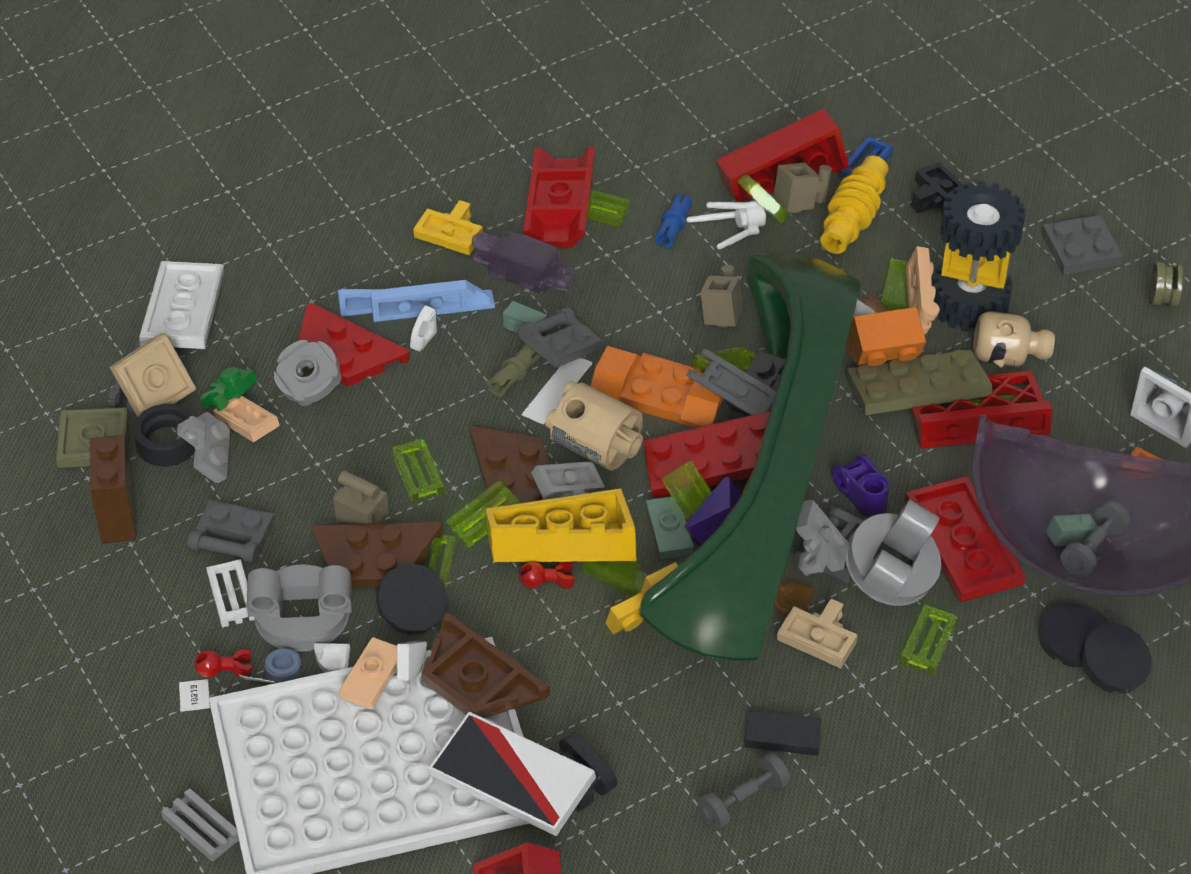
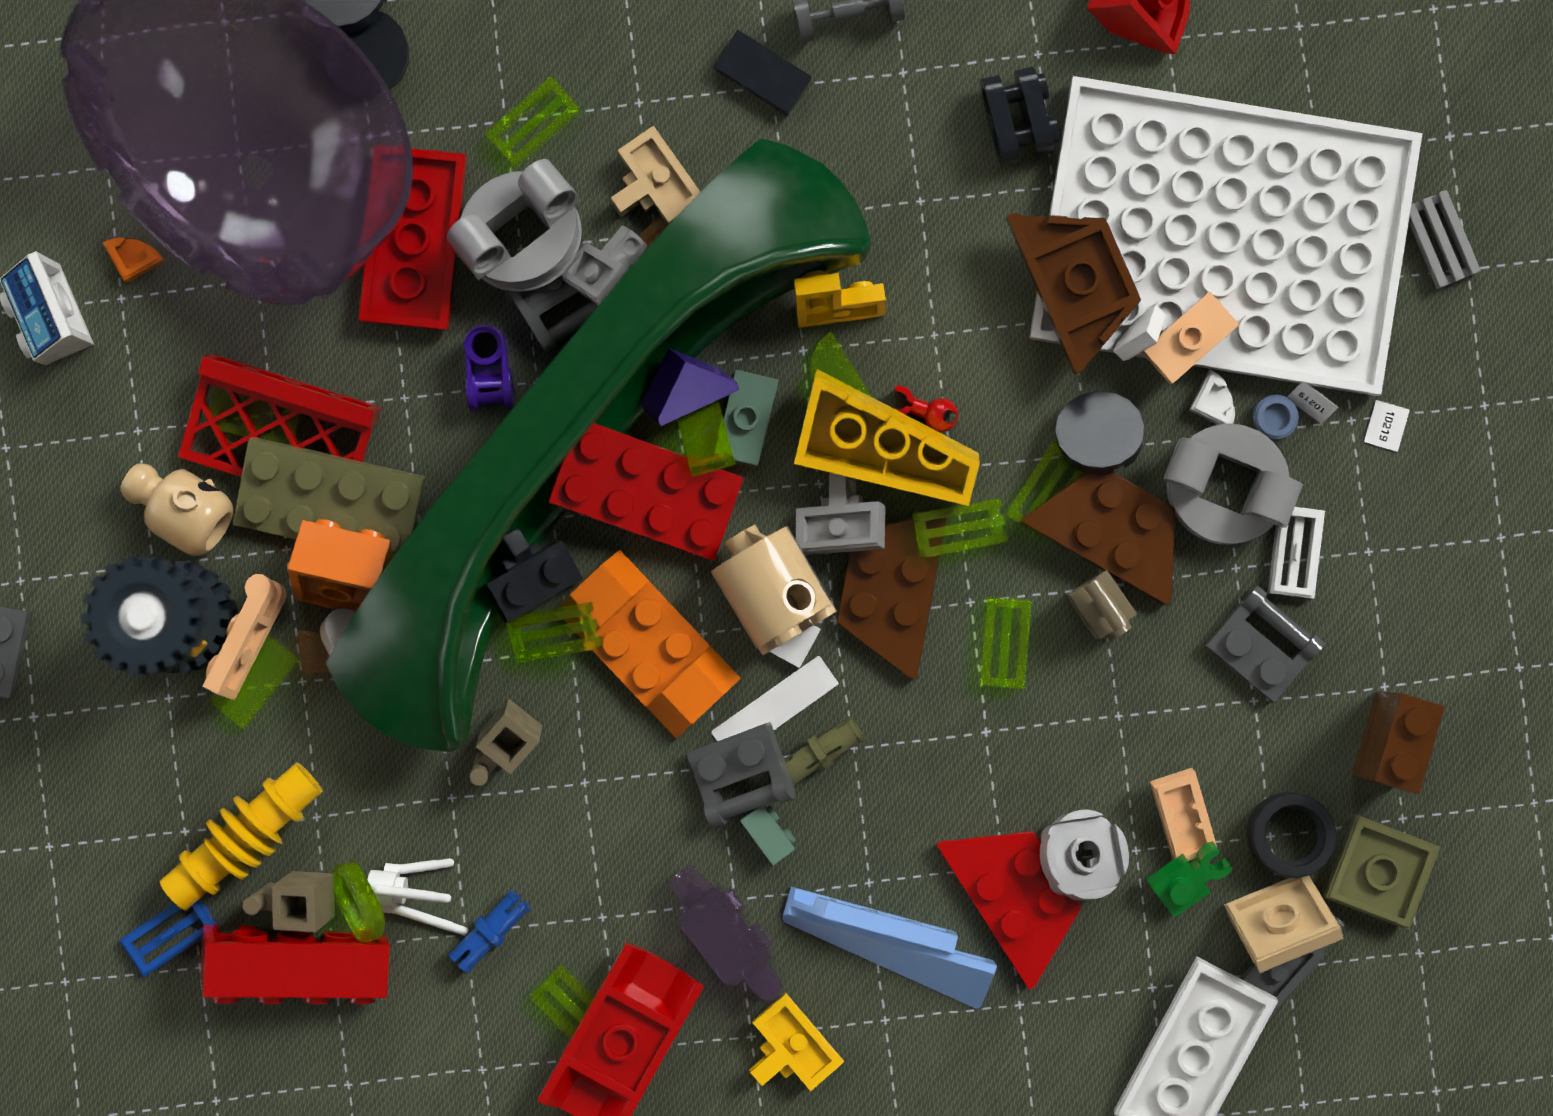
camera: 160 degrees left, 40 degrees up
(210, 442) = (1248, 785): light grey hinge -> none
(210, 663) = (1352, 448): red arm -> none
(424, 328) = (904, 872): white tile -> none
(512, 773) = (1096, 124): tile -> none
(734, 385) = (574, 567): dark grey hinge -> none
(935, 186) = (104, 822): black hinge -> none
(1070, 529) = (286, 178): sand green piece -> none
(1079, 558) = (234, 167): dark grey wheel -> none

